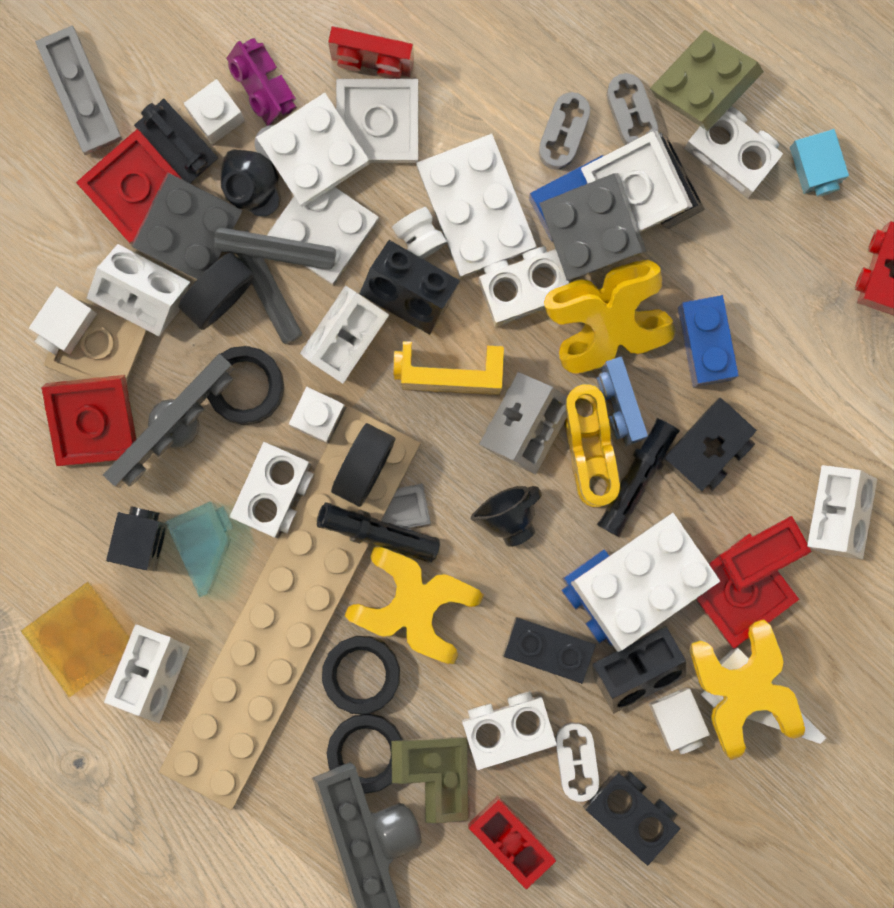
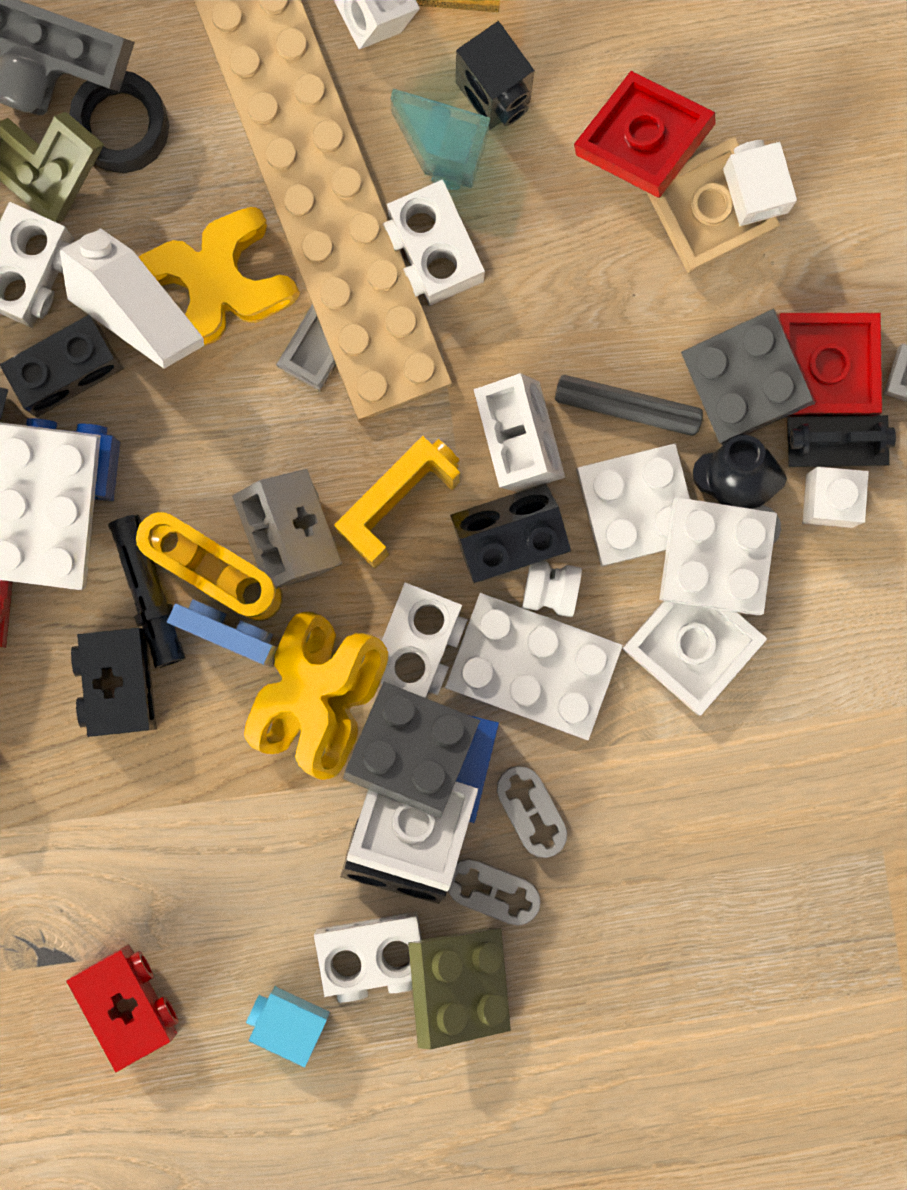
camera: 130 degrees right, 0 degrees up
(137, 290) = (728, 280): white brick -> none
(171, 423) = (575, 203): dark grey plate -> none
(216, 290) = (663, 350): black tyre -> none
(250, 65) = (847, 569): magenta hinge -> none
(274, 248) = (656, 438): dark grey axle -> none
(274, 395) = (563, 267): black tyre -> none
(317, 415) = (466, 344): white brick -> none
(331, 684) = (179, 143): black tyre -> none
(359, 50) = (777, 678): red plate -> none
(362, 527) = (323, 292): black pin -> none
(363, 464) = (379, 337): black tyre -> none
(473, 641) = (126, 298): none -> white slope
(509, 514) = (219, 441): black piece -> none
(707, 341) = (212, 767): blue brick -> none

